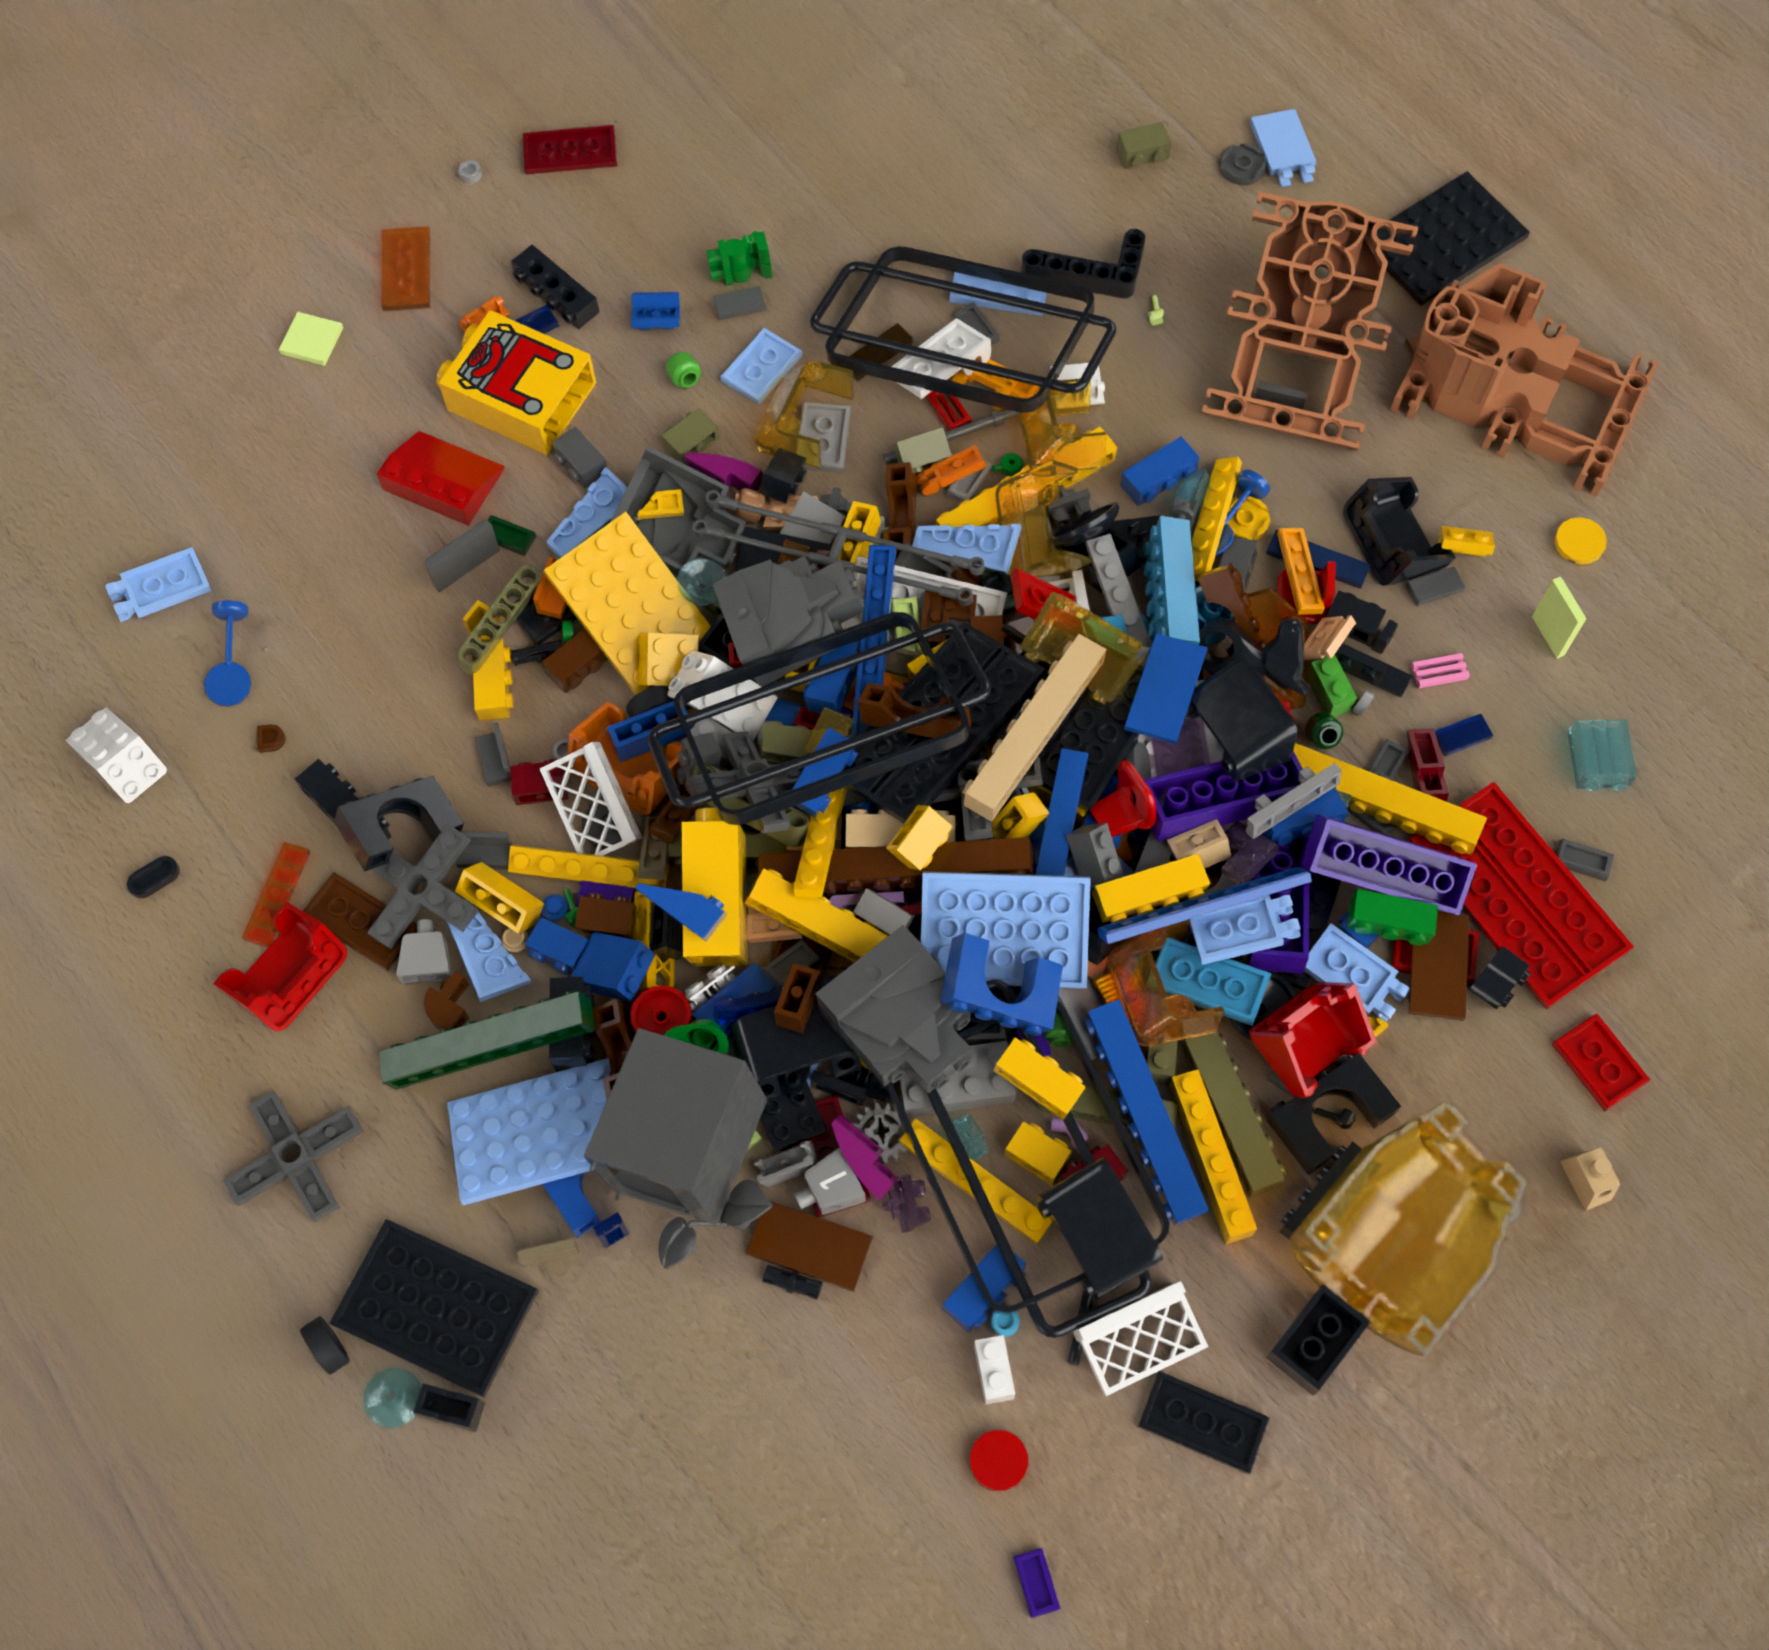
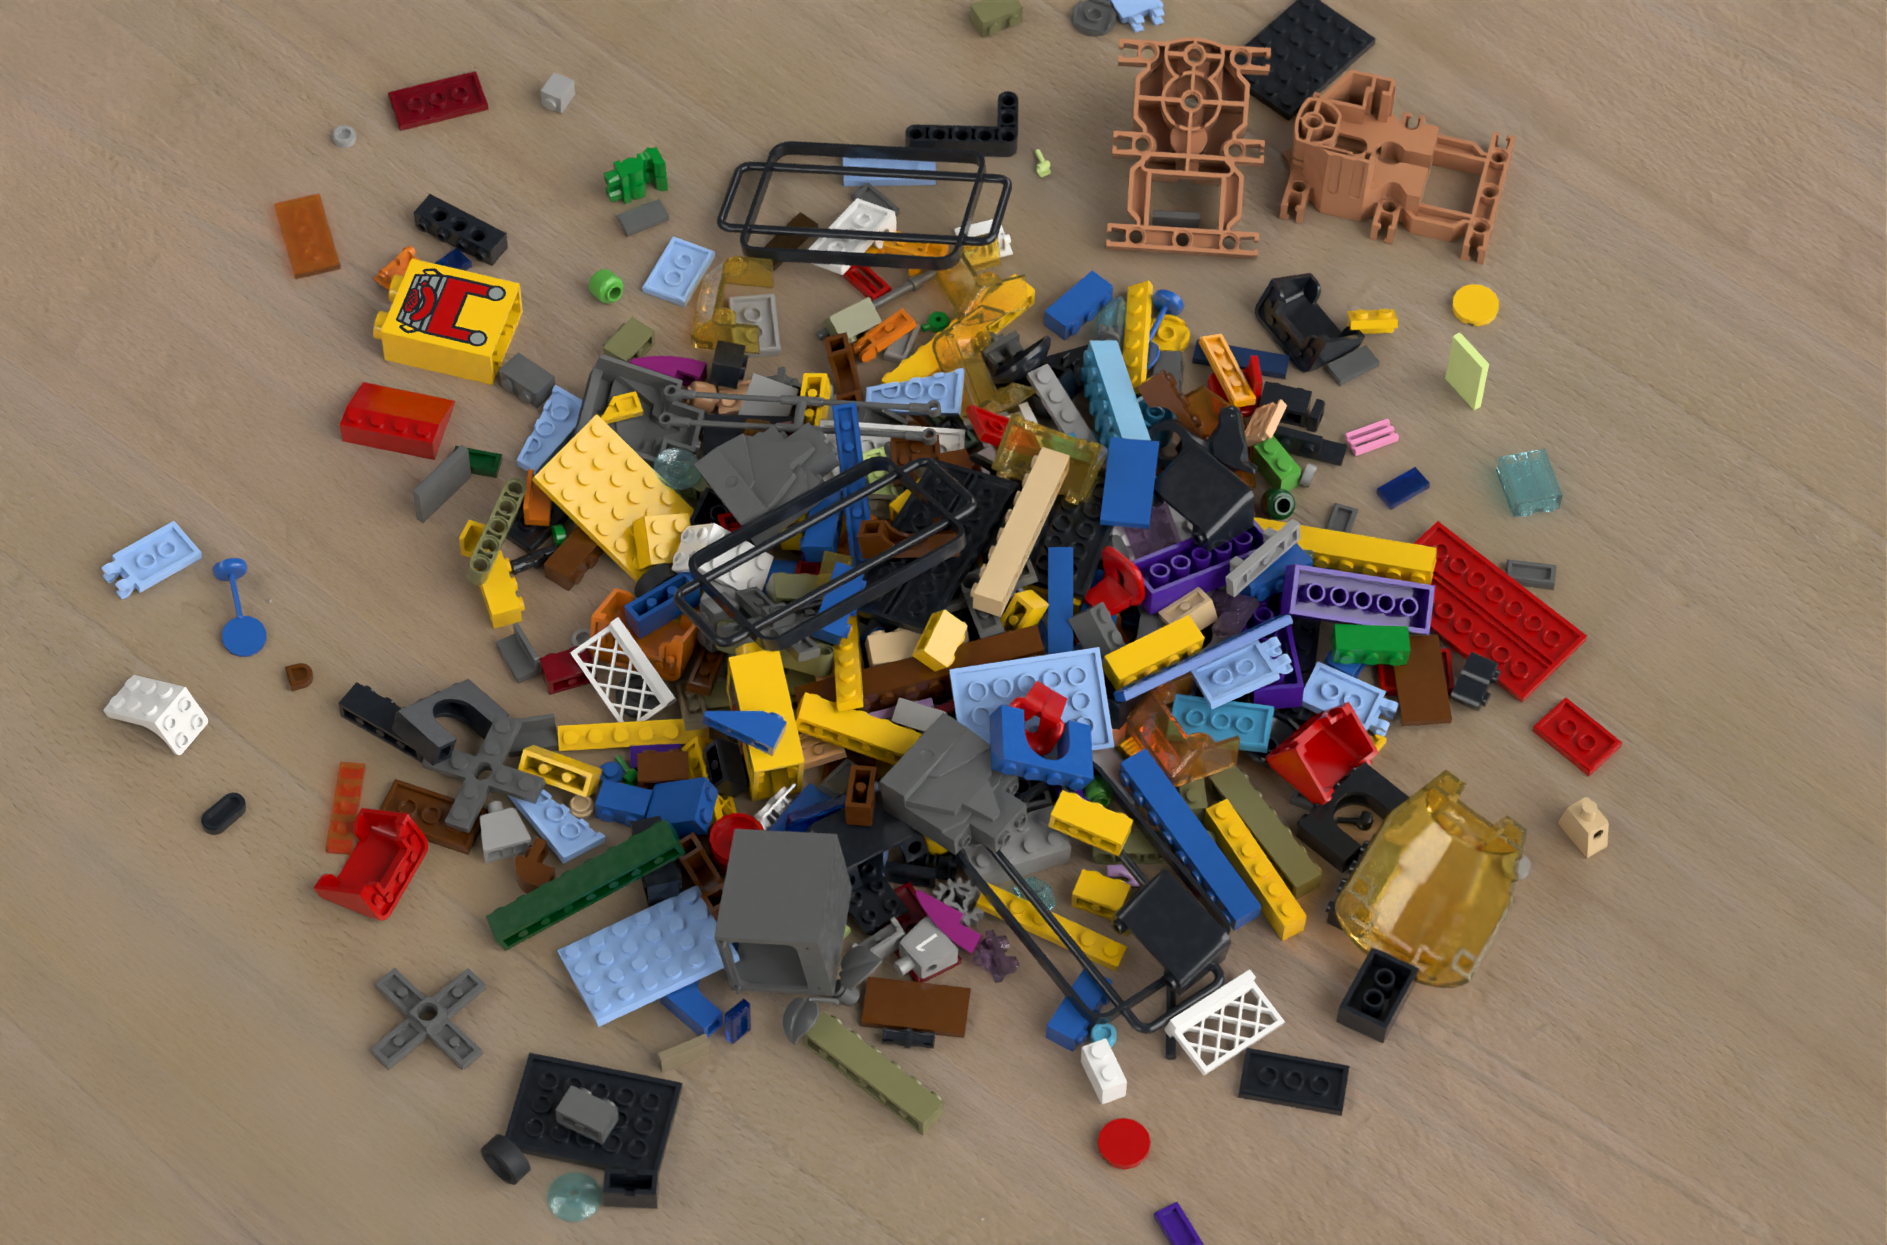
camera: 15 degrees left, 10 degrees down
(311, 338) = (232, 315): yellowish green tile -> none
(422, 1310) = (587, 1114): none -> dark grey brick
(655, 310) = (565, 236): blue bracket -> none
(686, 159) = (557, 93): none -> light grey brick
(745, 1320) = (874, 1073): none -> olive brick
(1019, 935) = (1047, 706): none -> red piece
(1427, 763) = (1375, 514): dark red slope -> none

